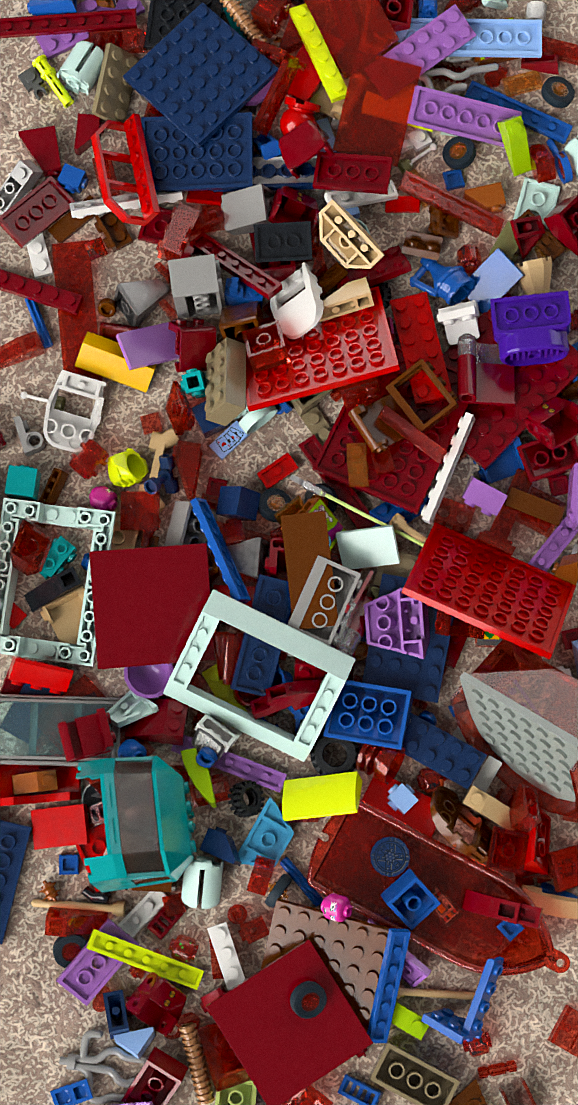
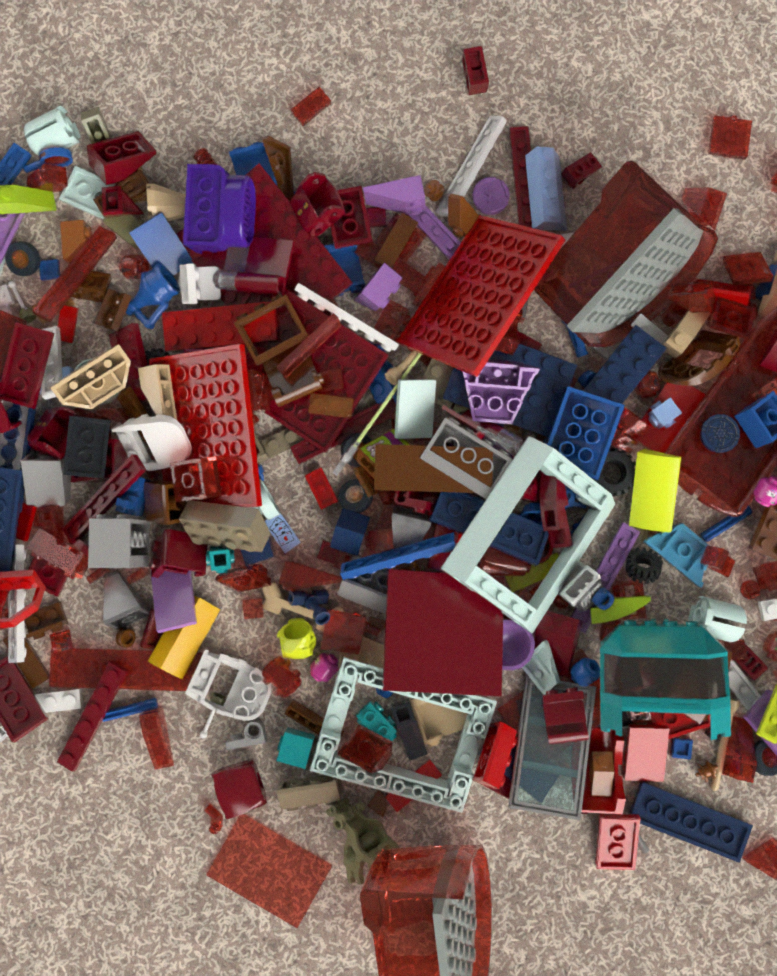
camera: 85 degrees left, 5 degrees up
(220, 845) = (686, 596): dark blue slope -> none
(278, 890) = (736, 546): black wheel -> none

